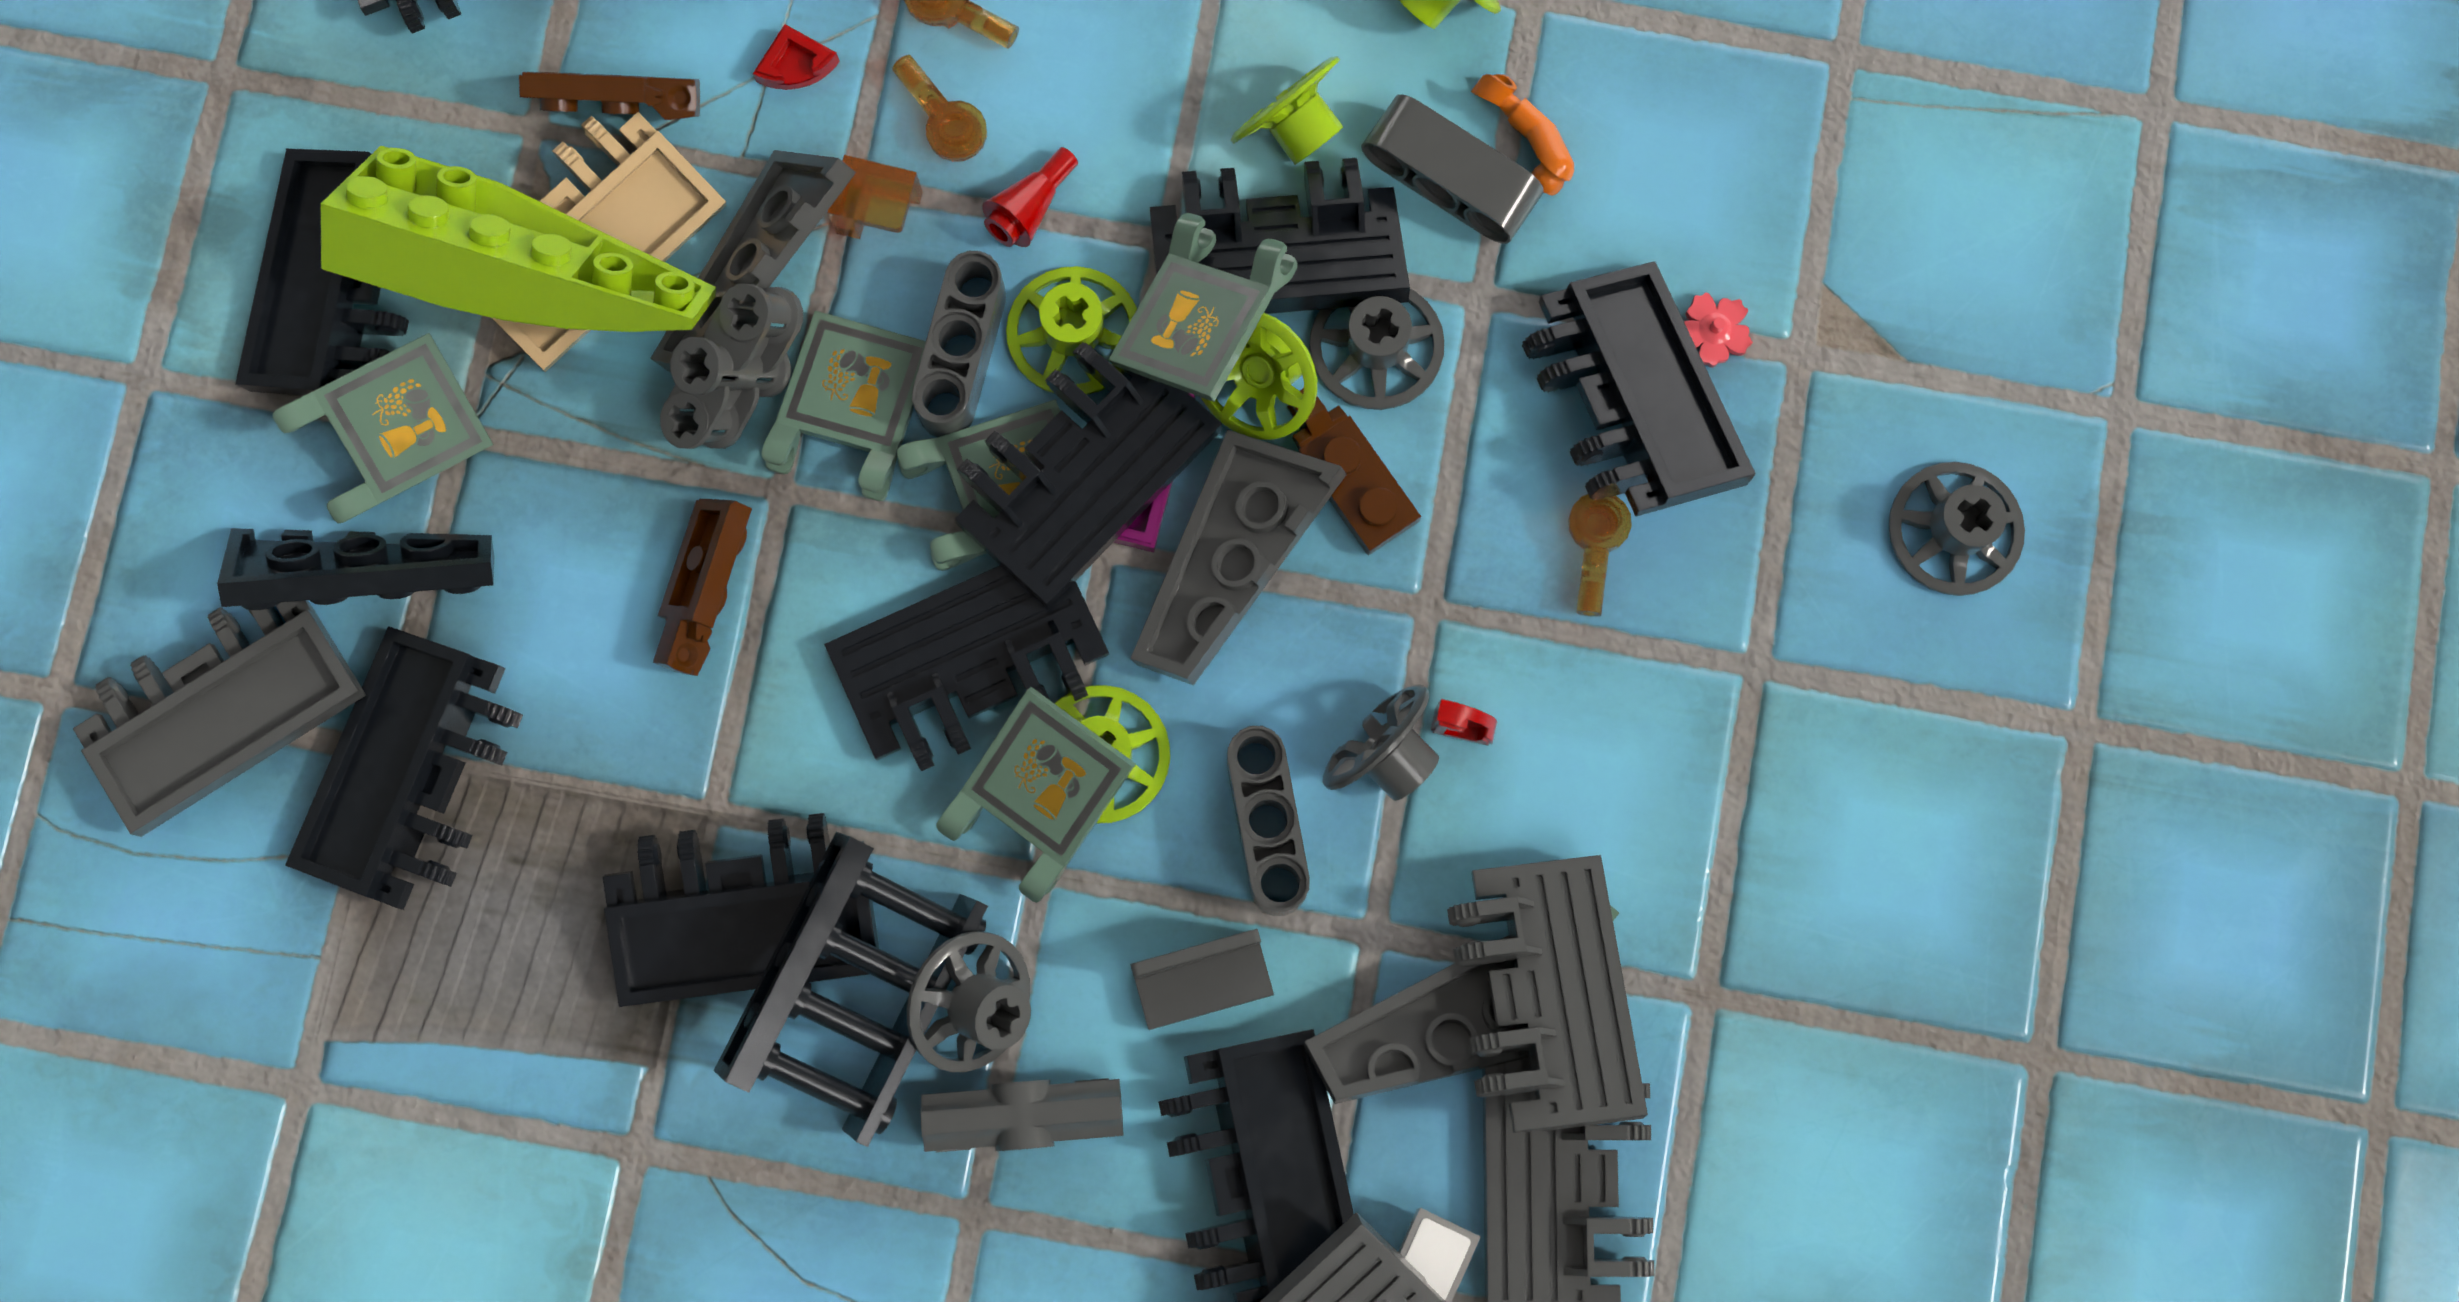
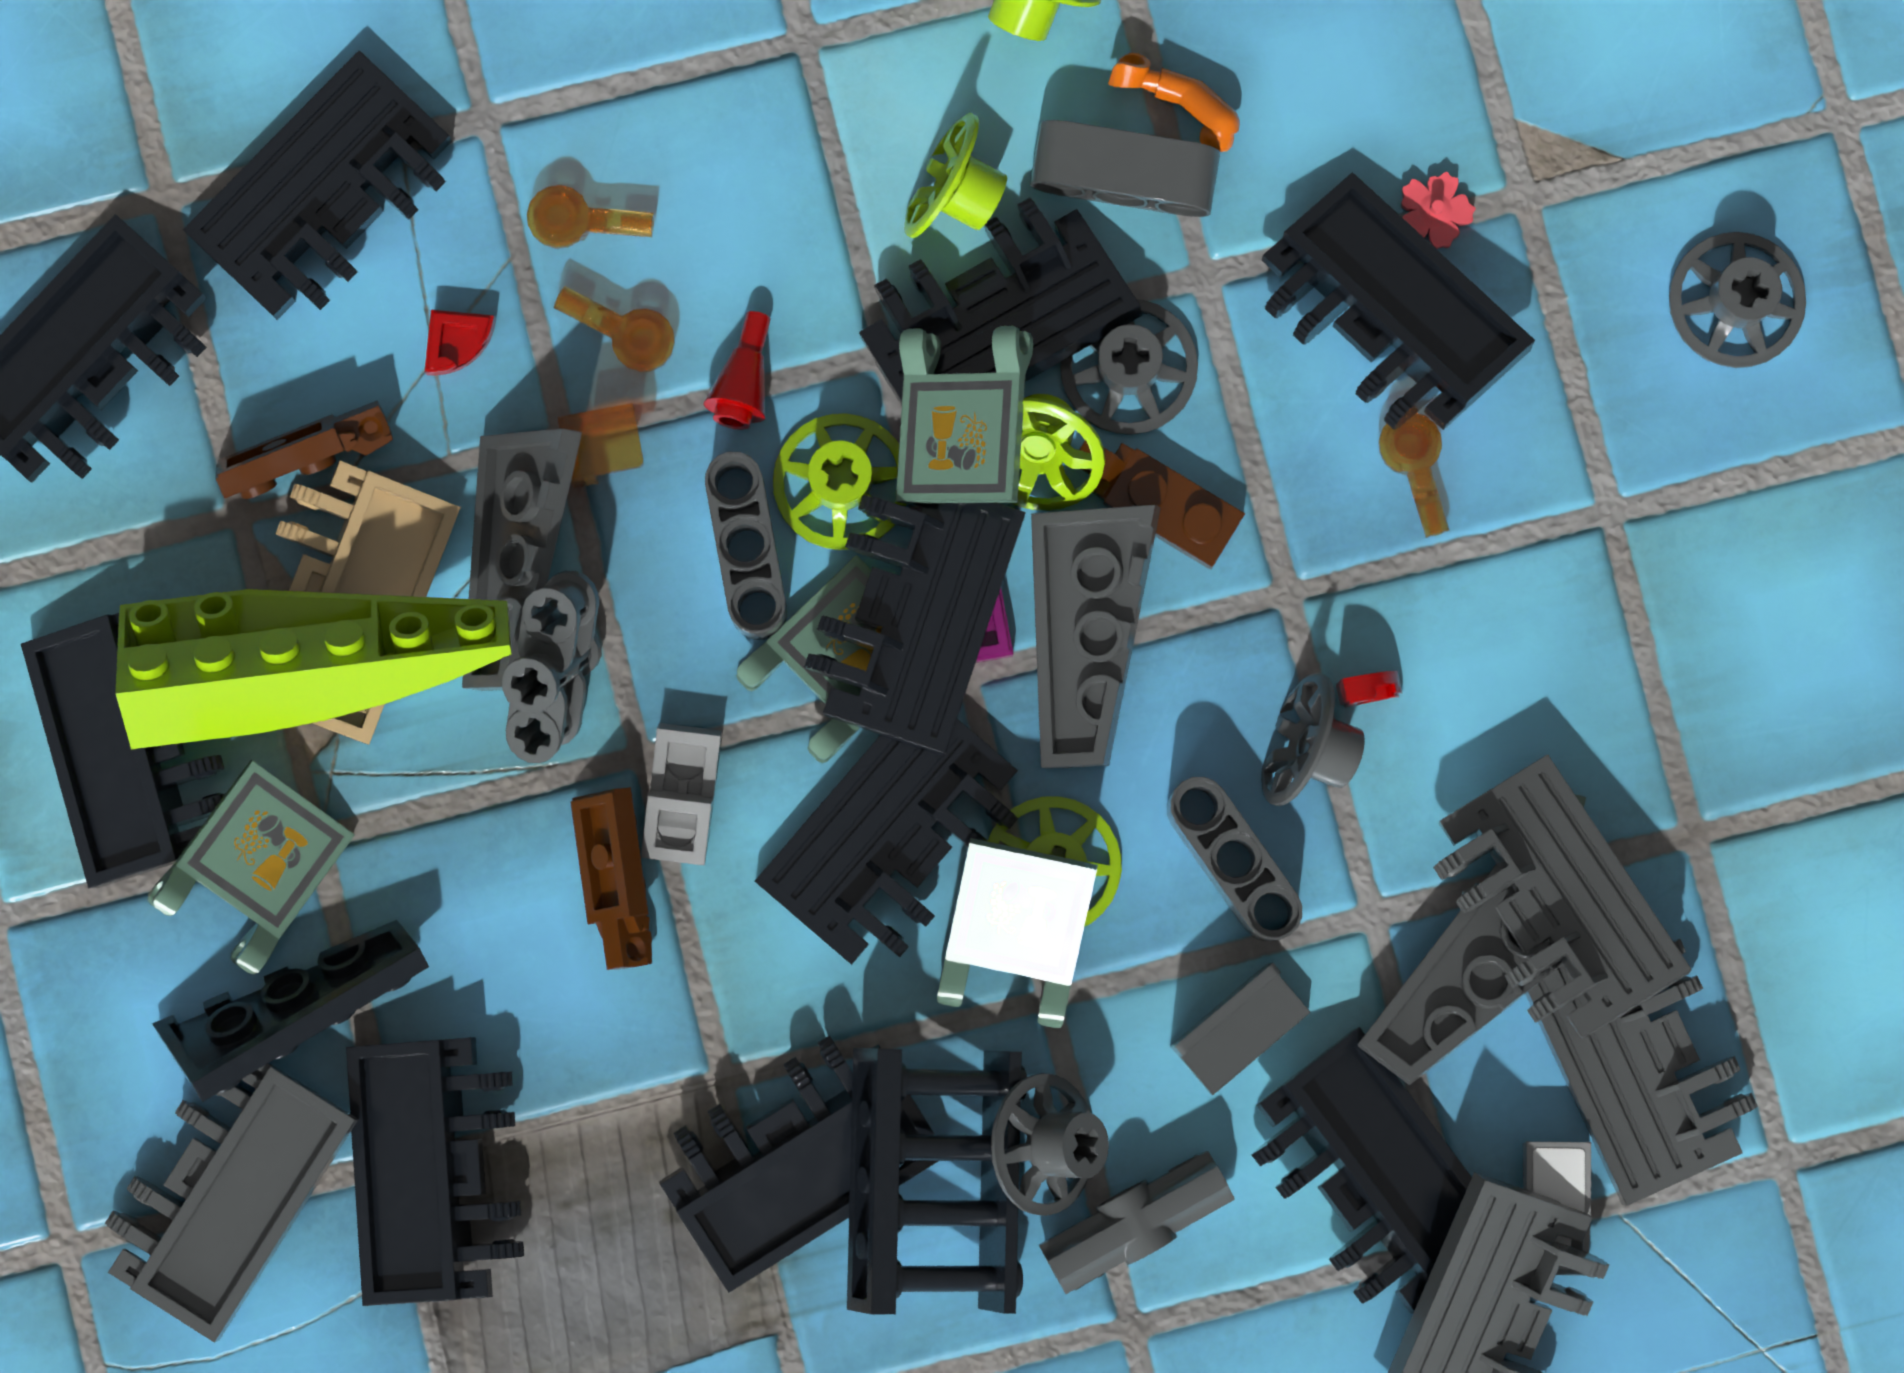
camera: 25 degrees left, 5 degrees up
(798, 539) = (681, 794): none -> light grey slope
(849, 390) = (665, 631): sand green flag -> none

